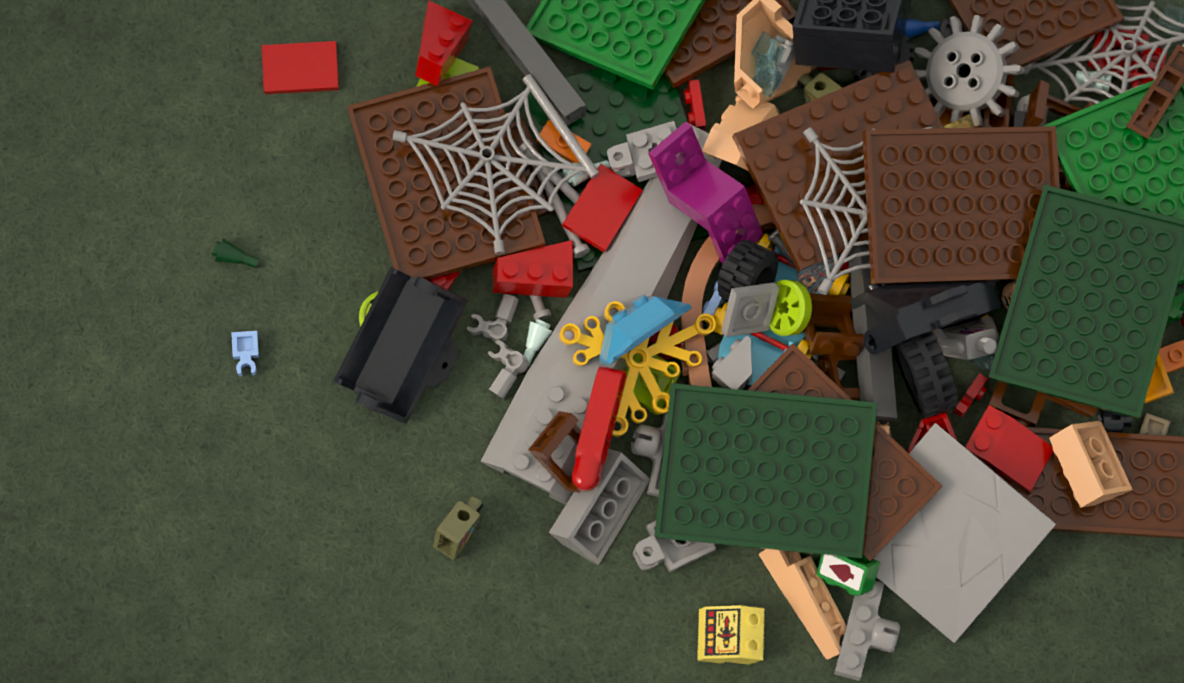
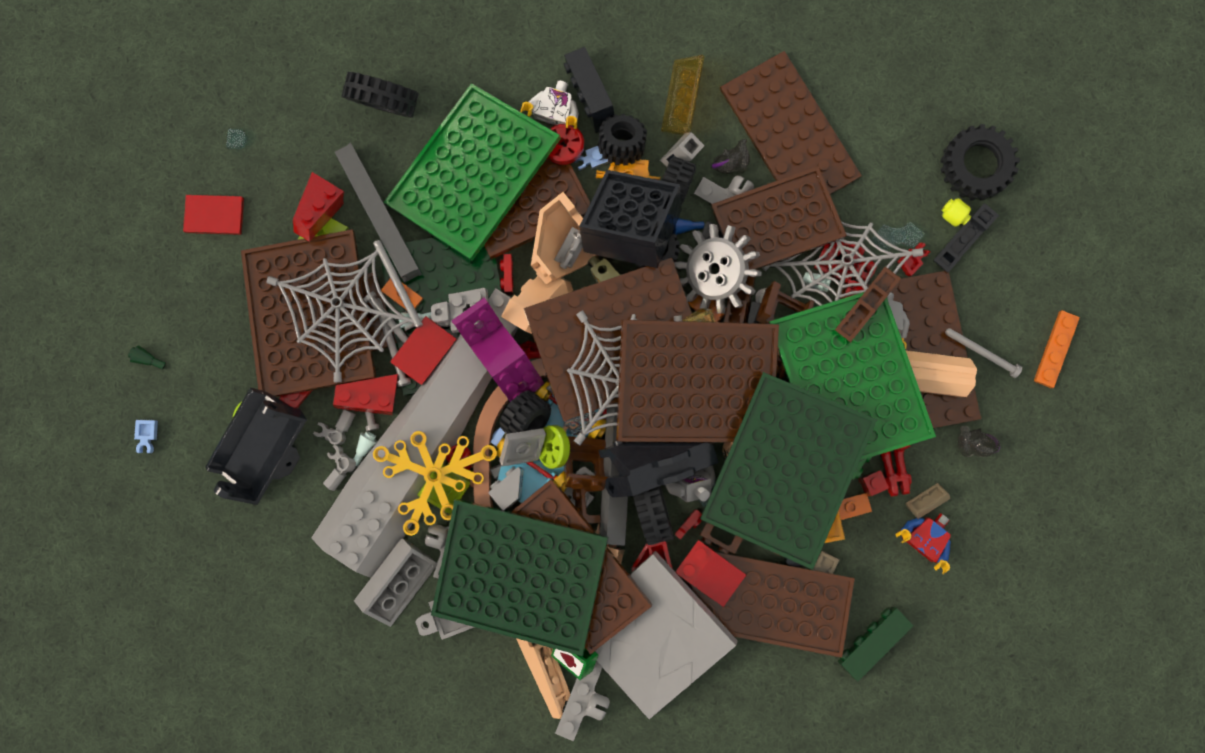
camera: 15 degrees right, 10 degrees up
(457, 527) = (279, 596): olive torso -> none
(548, 441) = (357, 534): reddish brown window -> none
(598, 427) = (393, 530): red piece -> none
(638, 324) = (434, 451): dark azure wedge -> none
(731, 634) = (480, 695): light yellow piece -> none
(766, 58) = (561, 243): clear light blue tile -> none
(1090, 463) = (772, 592): light nougat slope -> none

